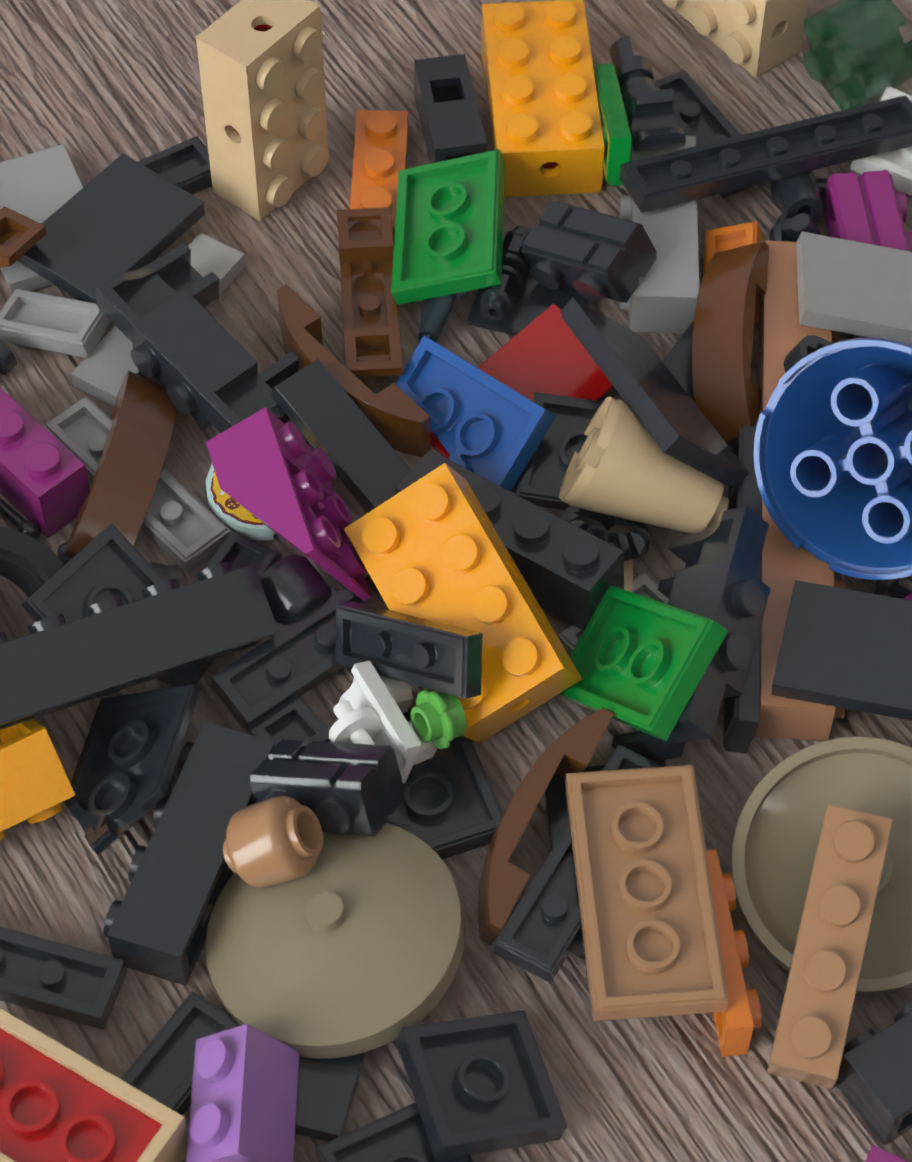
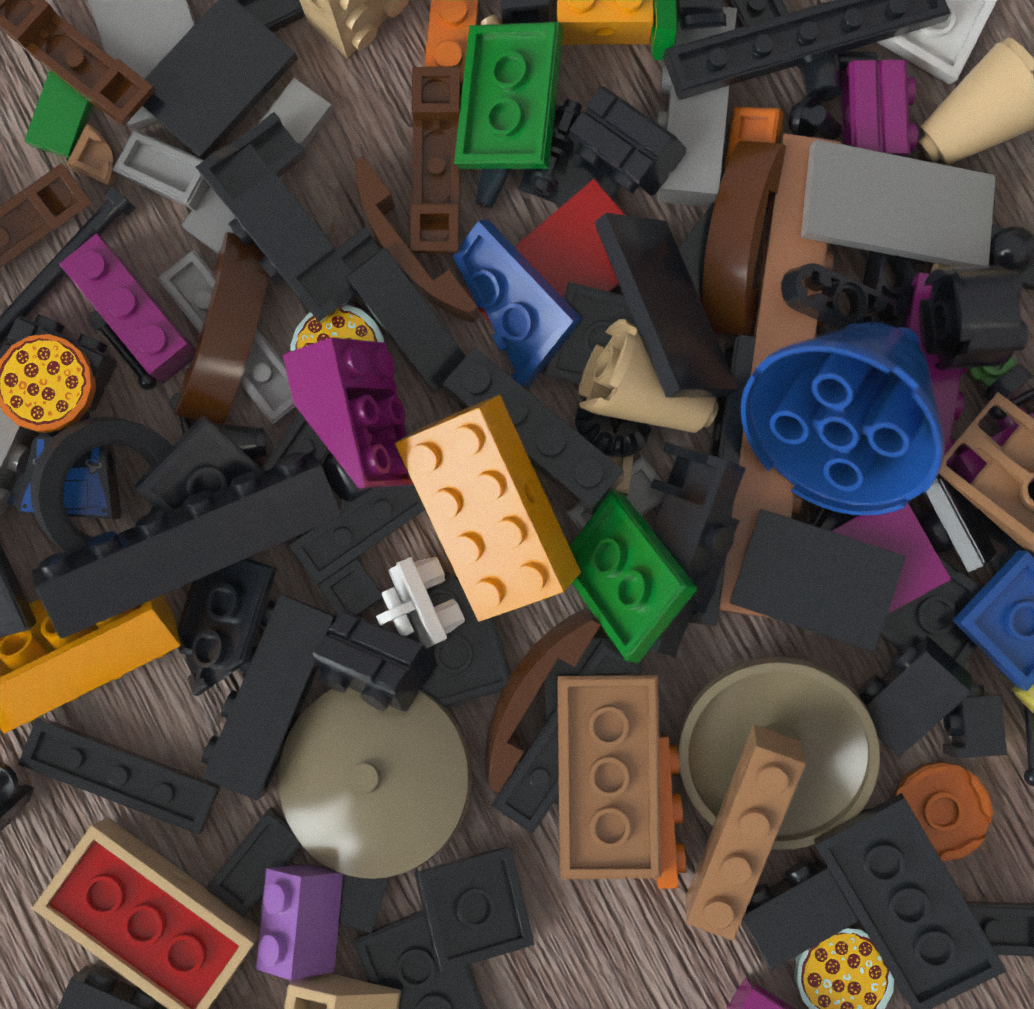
camera: 10 degrees right, 30 degrees up
(273, 842) = (327, 718): medium nougat head -> none
(410, 649) = (442, 558): black tile -> none
(438, 718) = (462, 615): bright green plate -> none

